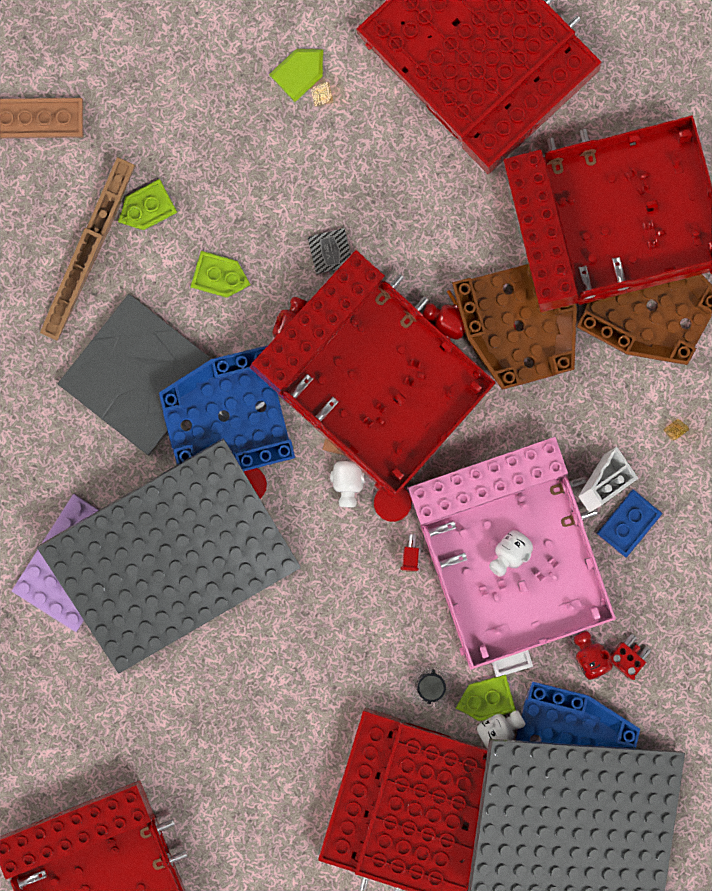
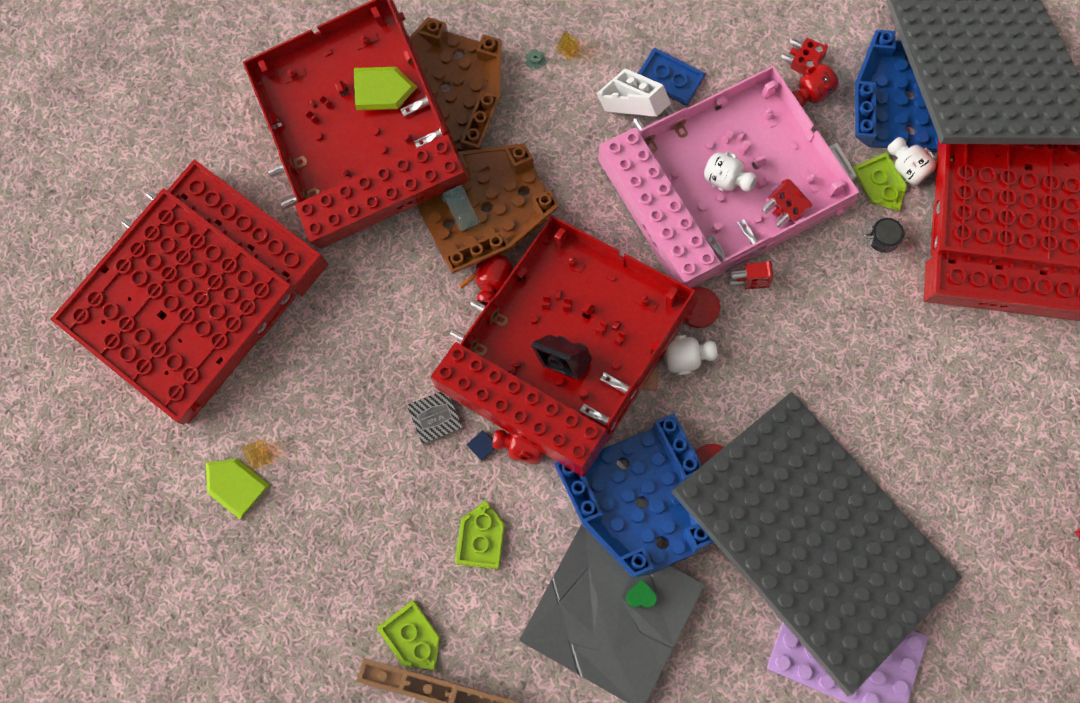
camera: 100 degrees left, 15 degrees down
(146, 400) = (641, 595): none -> green tile
(298, 287) = (481, 445): none -> dark blue tile
(358, 367) = (562, 355): none -> black slope
(481, 604) = (795, 201): none -> red piece
(517, 300) = (460, 208): none -> clear light blue bracket
(641, 241) = (381, 88): none -> lime tile
(666, 392) = (536, 63): none -> sand green plant

